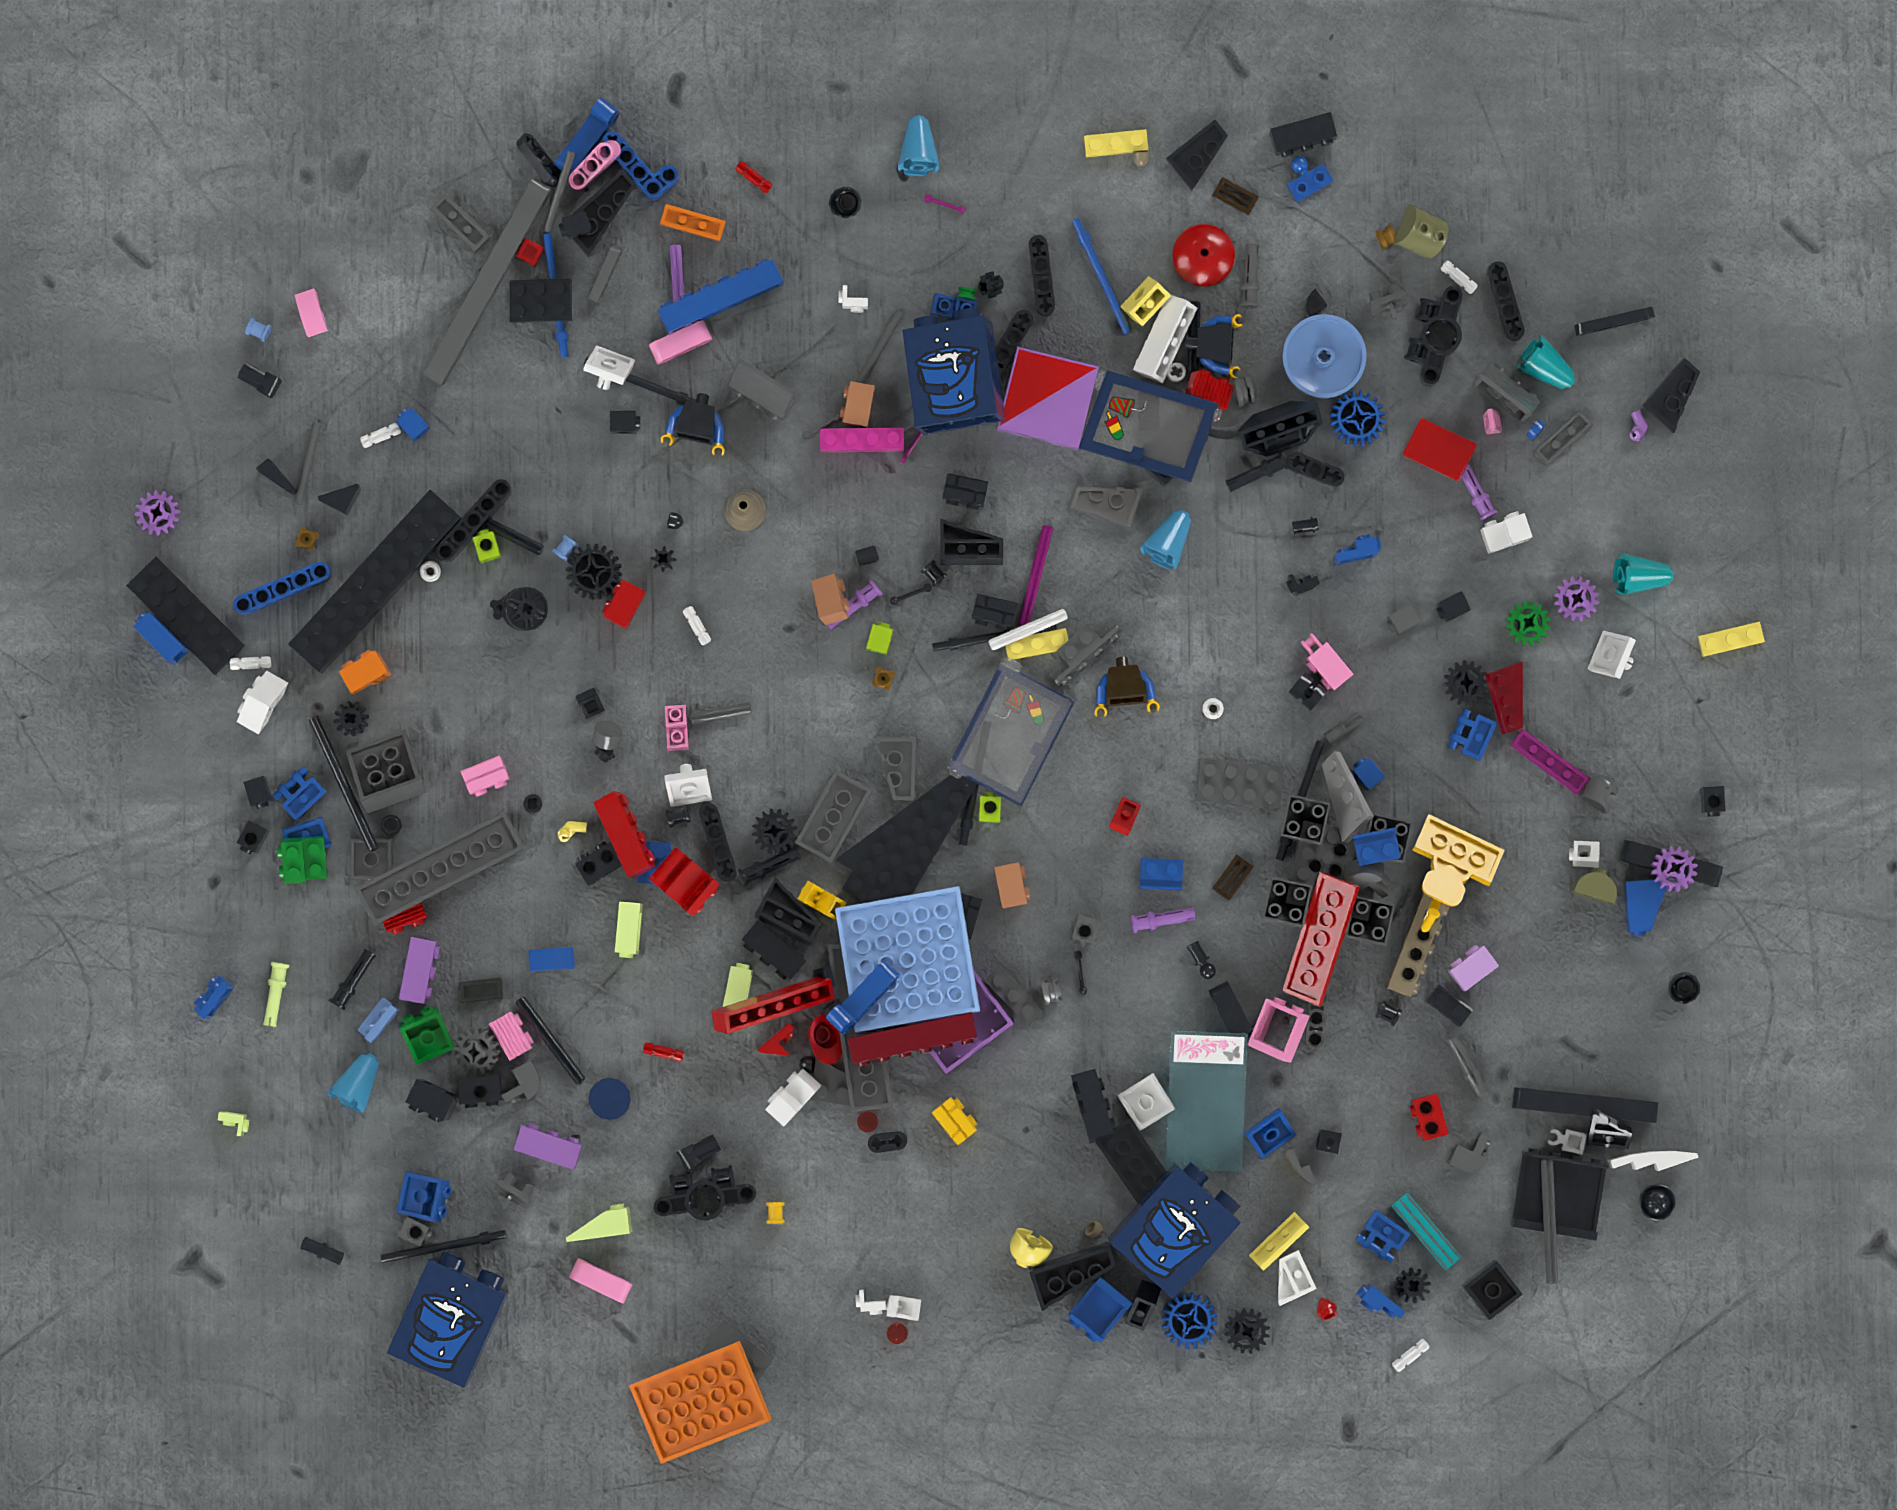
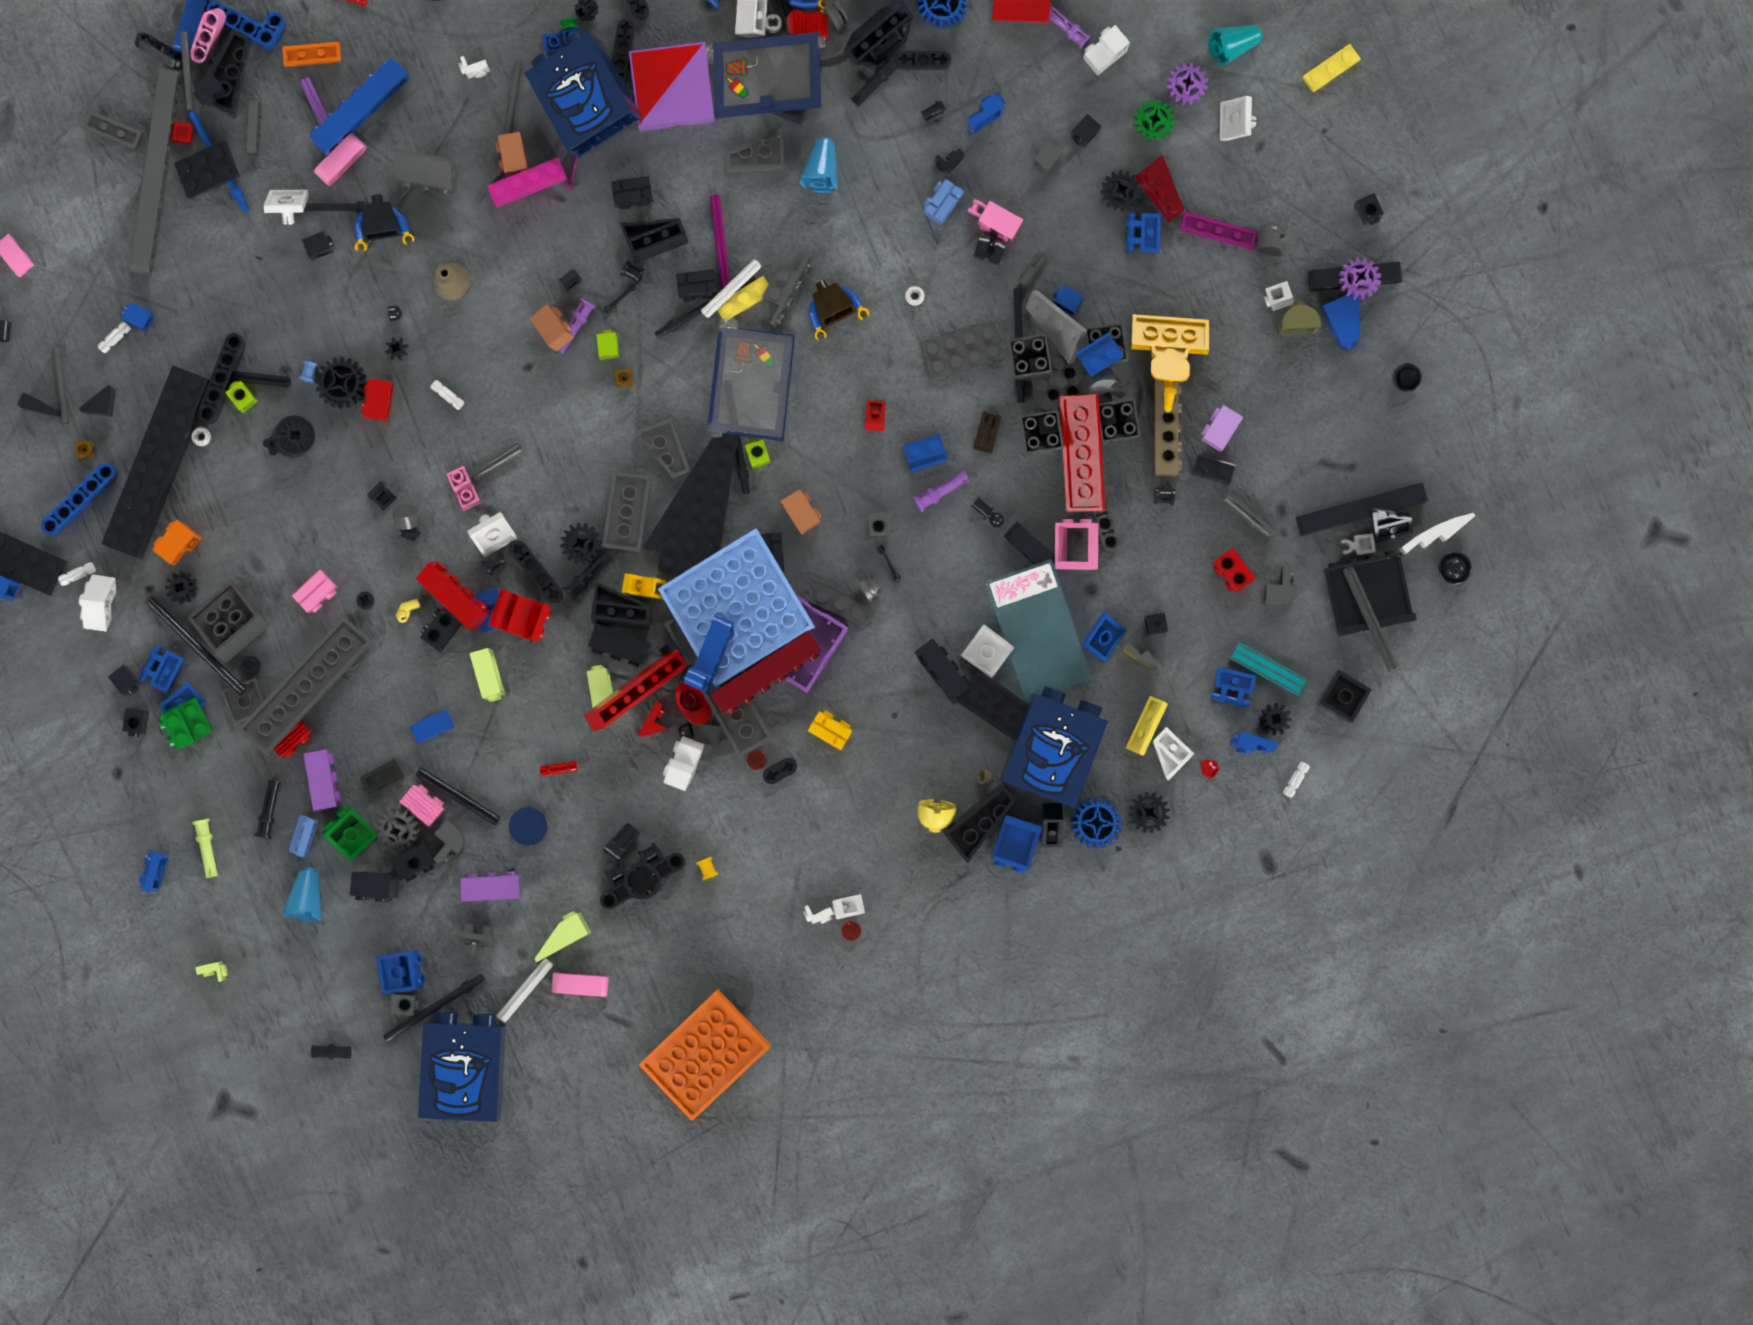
camera: 20 degrees left, 0 degrees up
(542, 1264) = (524, 990): none -> white axle
(1278, 624) = (943, 201): none -> medium blue brick

